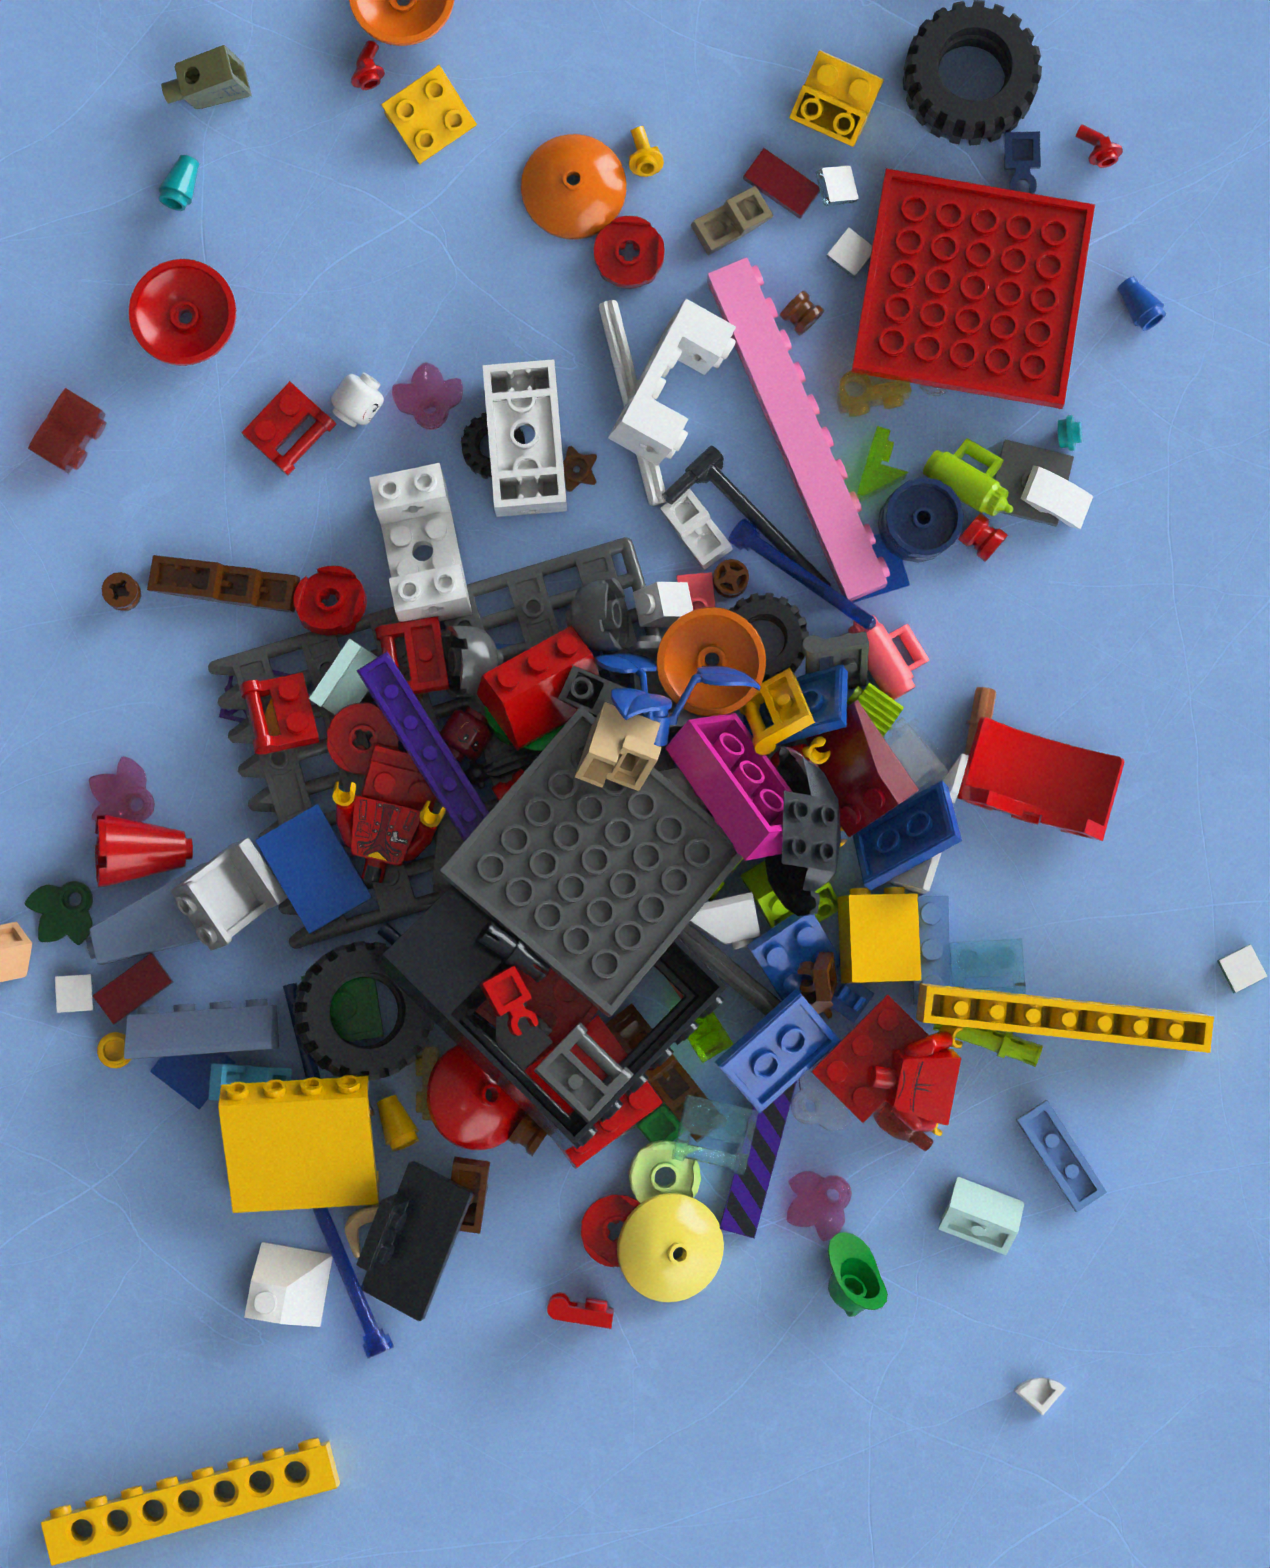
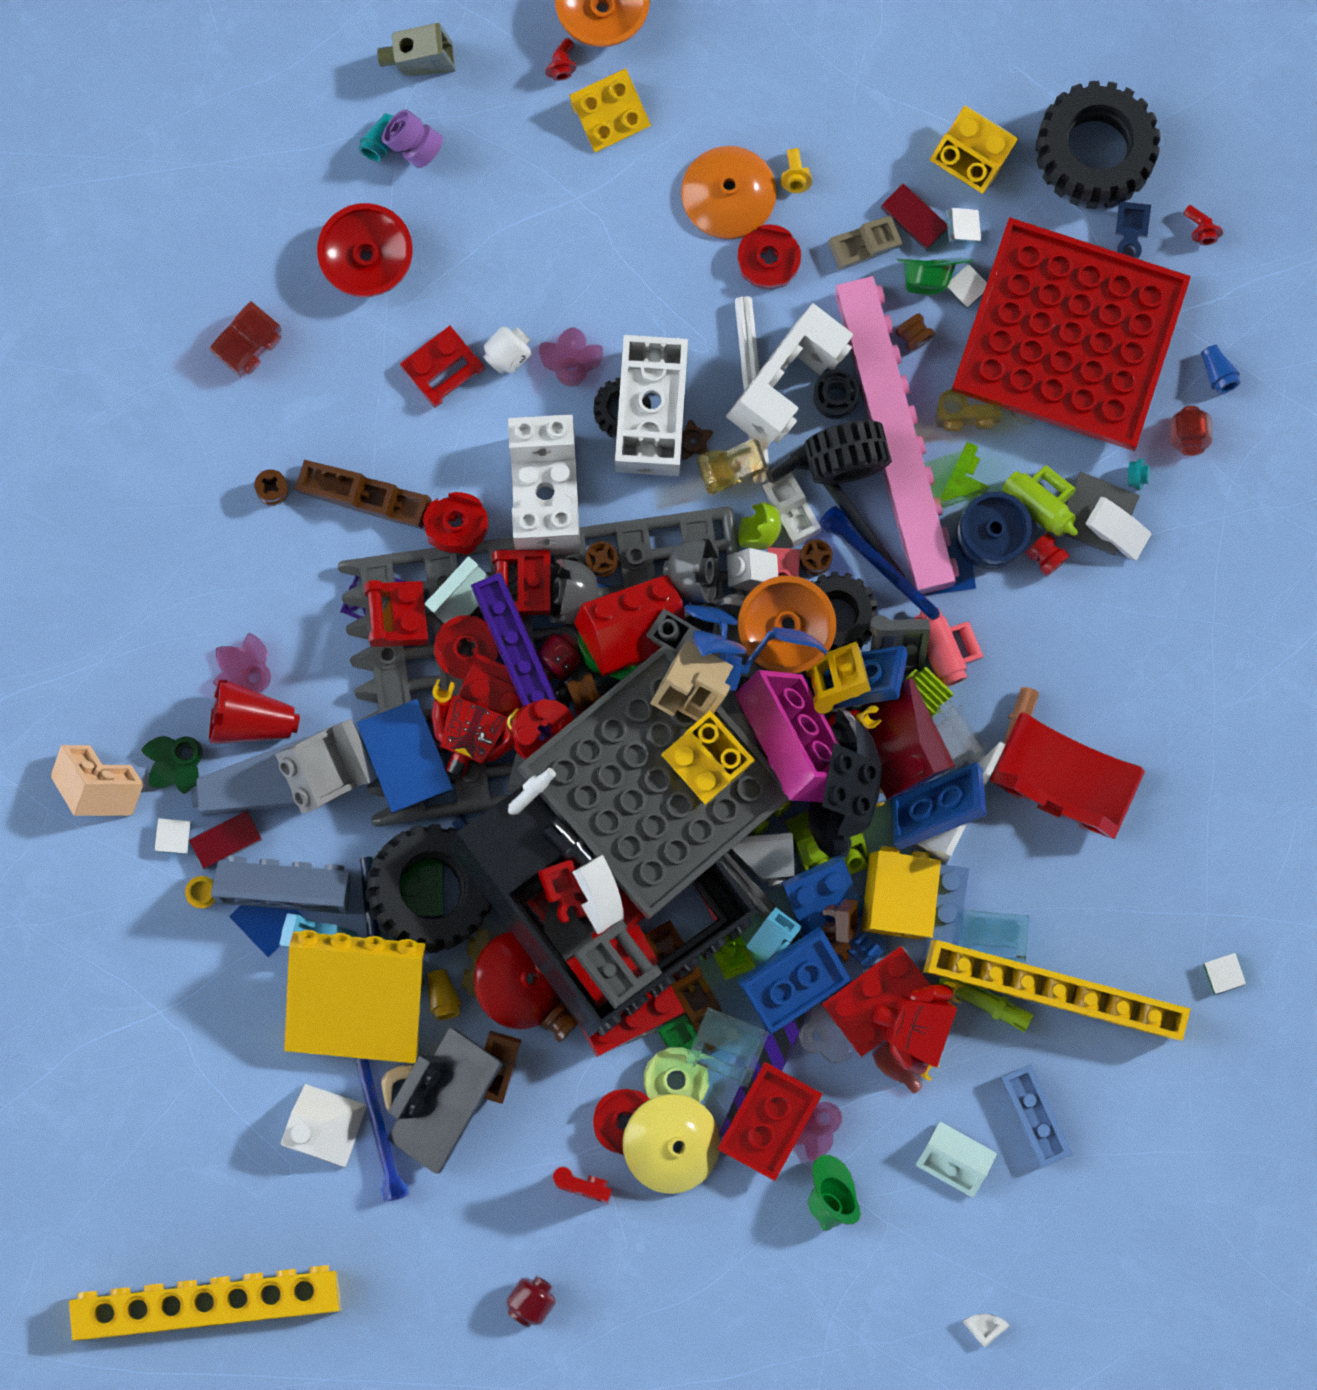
camera: 10 degrees right, 5 degrees down
(219, 180) = (412, 137): none -> medium lavender wheel
(446, 808) = (528, 719): none -> red plate
(458, 895) = (532, 788): none -> white piece
(497, 612) = (603, 553): none -> reddish brown wheel
(499, 770) = (583, 692): none -> reddish brown wheel
(544, 1443) = (530, 1301): none -> dark red head
(553, 997) = (604, 901): none -> white slope
(624, 492) = (731, 467): none -> clear yellow plate
(647, 828) = (708, 757): none -> yellow brick
(665, 556) = (760, 529): none -> lime hair
(728, 378) = (843, 381): none -> black wheel
(747, 1005) = (773, 935): none -> medium azure brick
(749, 459) = (847, 452): none -> black tyre
(774, 1208) = (769, 1121): none -> red plate
(808, 246) = (929, 276): none -> green piece
(1120, 376) = (1191, 431): none -> clear red head

